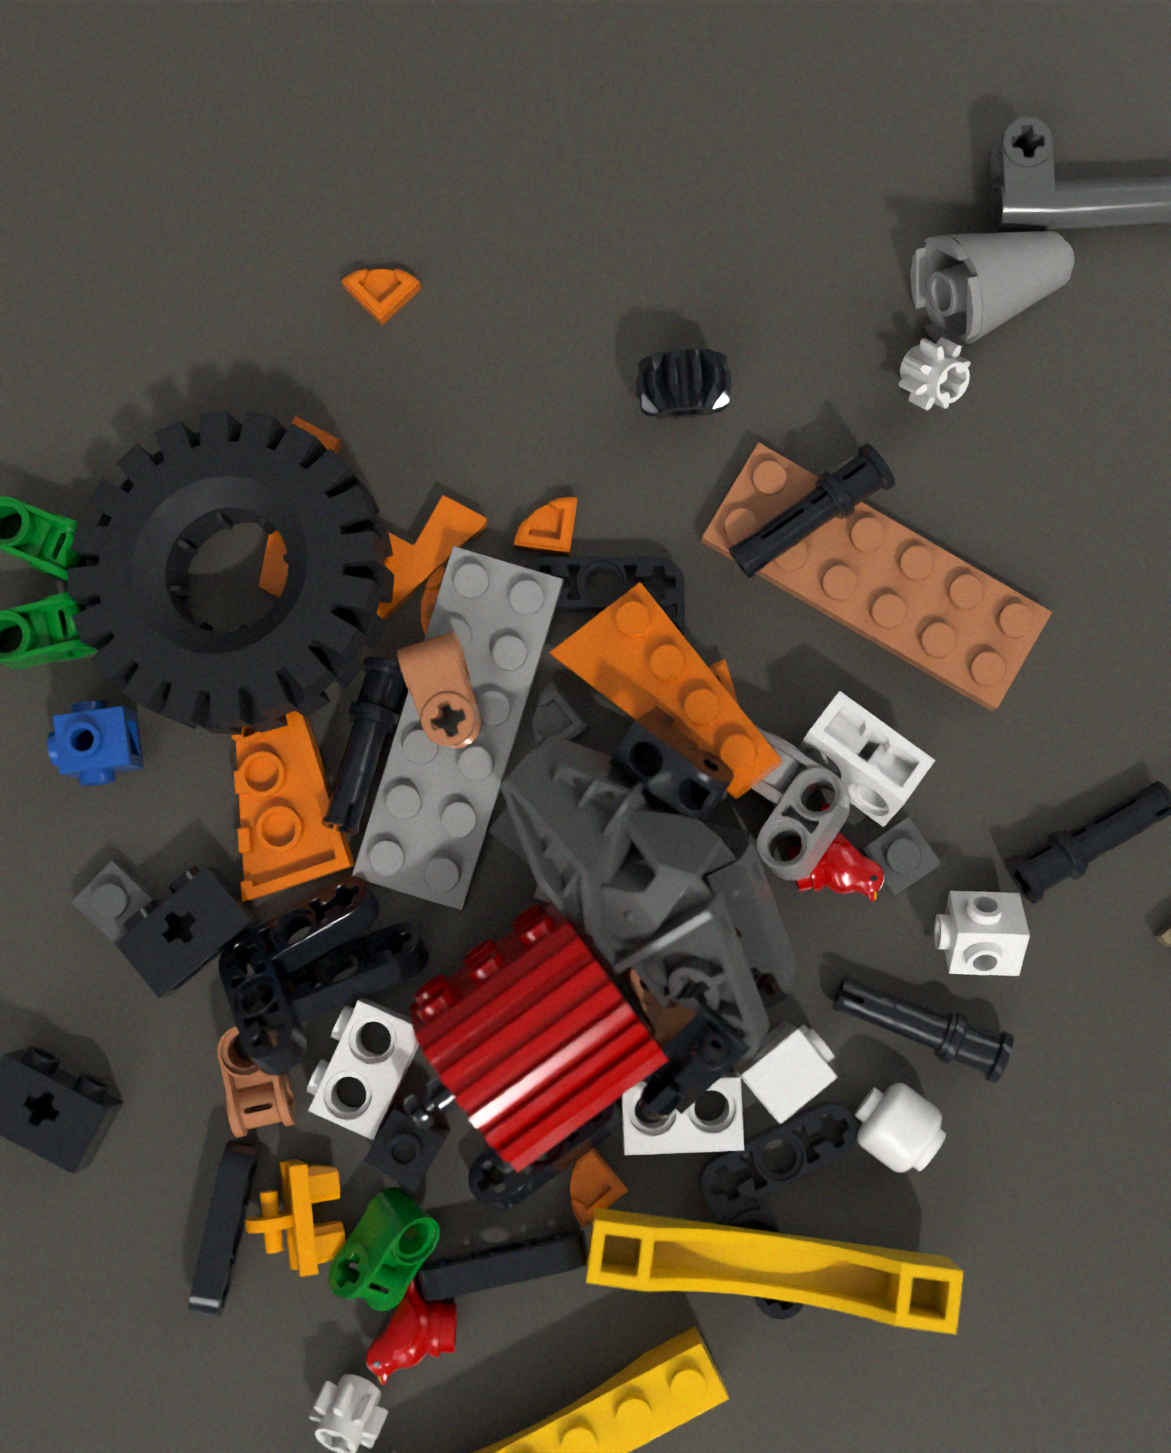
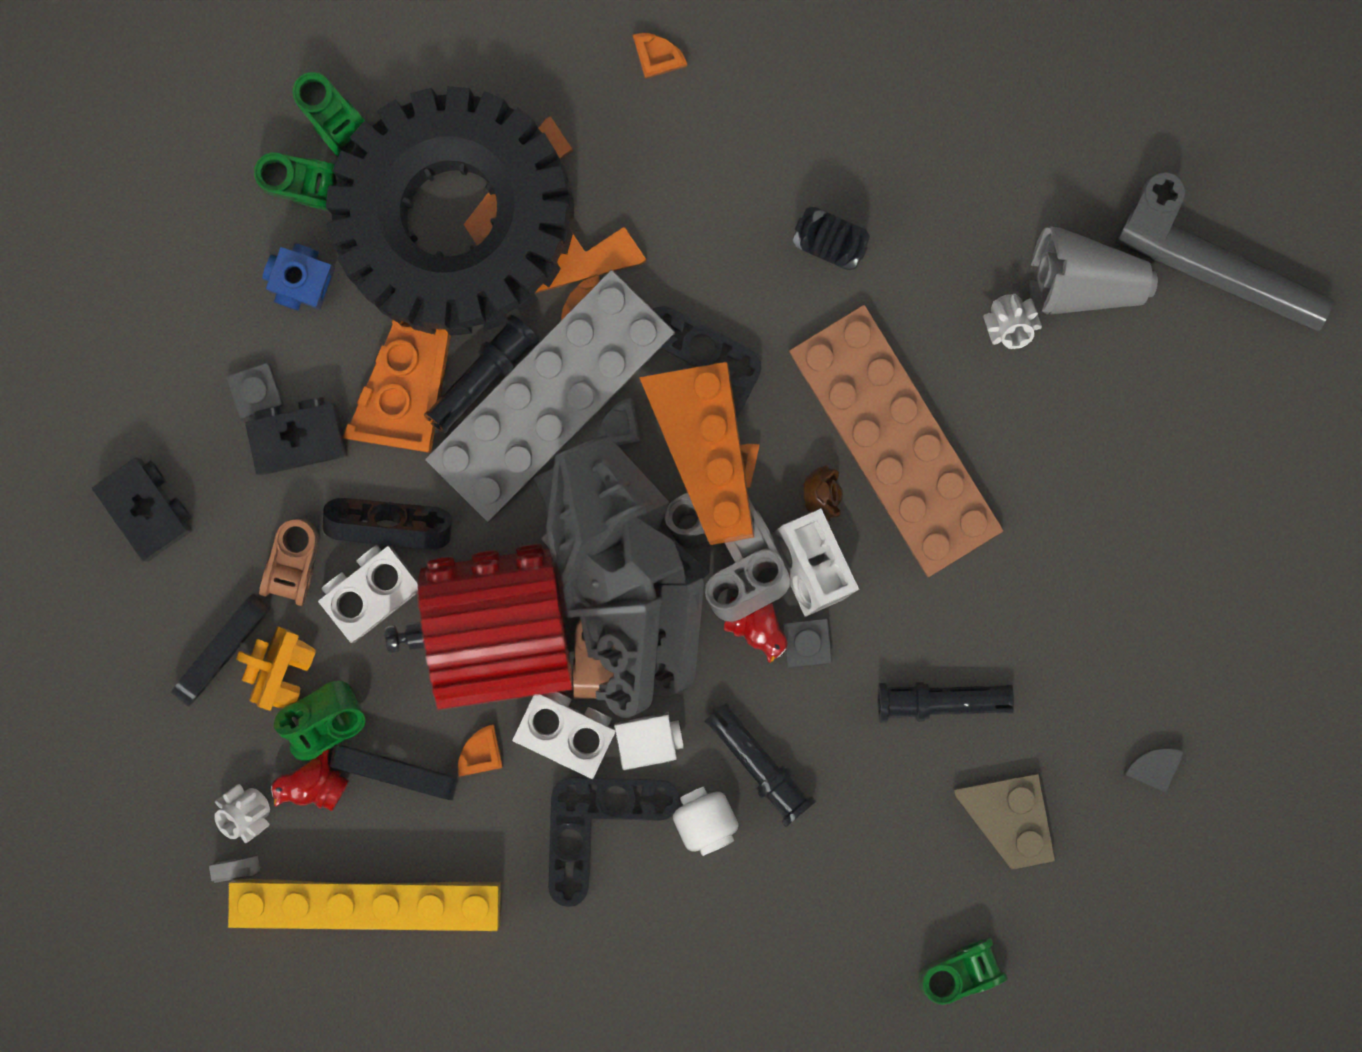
camera: 30 degrees right, 5 degrees up
(273, 959) = (344, 488): black beam -> none
(405, 1149) = (370, 660): black brick -> none
(439, 680) = (553, 358): nougat piece -> none
(521, 1185) = (477, 720): black beam -> none
(549, 528) = (686, 287): orange tile -> none
(672, 765) = (677, 499): black leg -> none
(695, 1062) = (587, 702): black hinge -> none
(825, 673) = (823, 492): none -> reddish brown plate
(833, 497) = (890, 373): black pin -> none
(836, 1275) = (569, 862): yellow arch -> none
(983, 933) = (831, 722): white brick -> none

